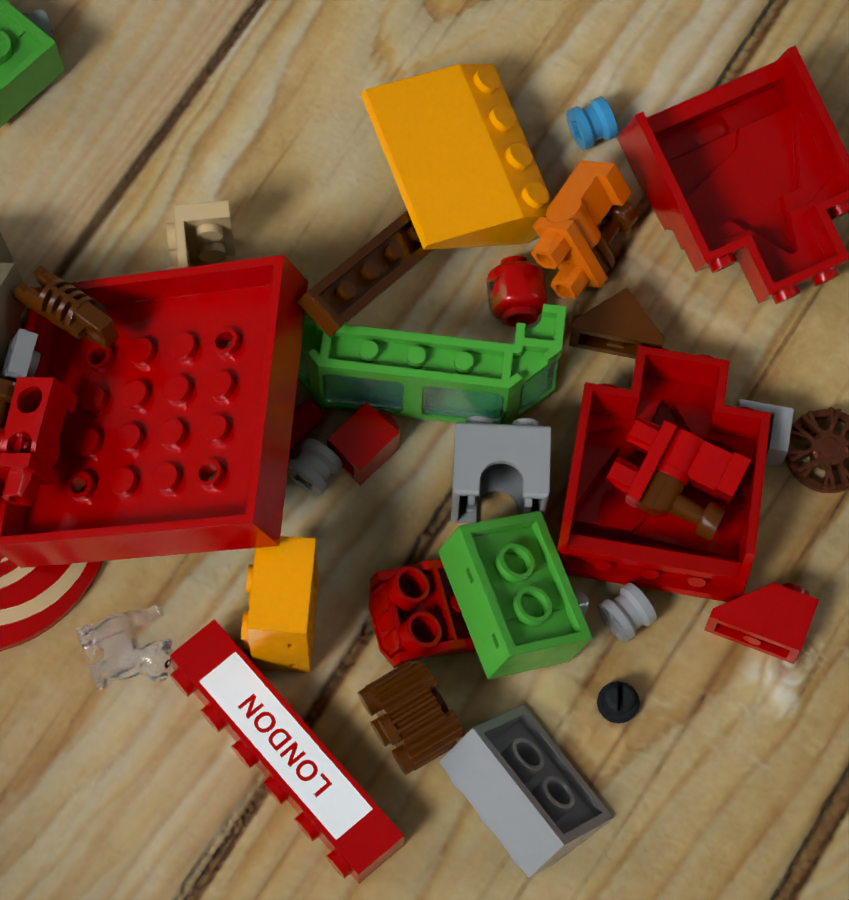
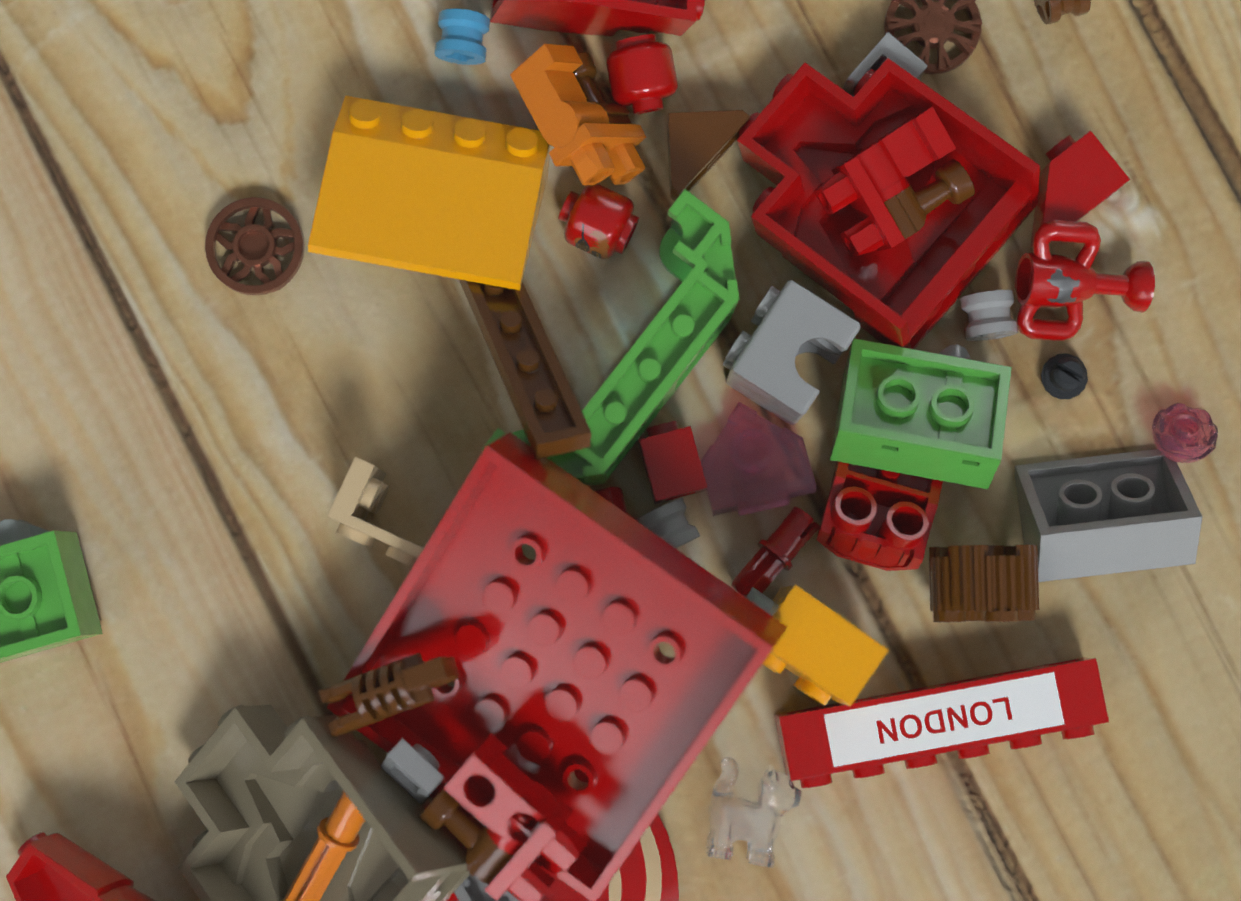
camera: 60 degrees left, 15 degrees up
(346, 72) = (254, 246): none -> copper wheel
(349, 558) = (776, 552): none -> red axle
(399, 504) = (755, 465): none -> clear pink plate
(629, 815) = (1184, 433): none -> clear pink plate
(647, 258) = (641, 73): none -> red head
(691, 654) = (1064, 281): none -> red piece

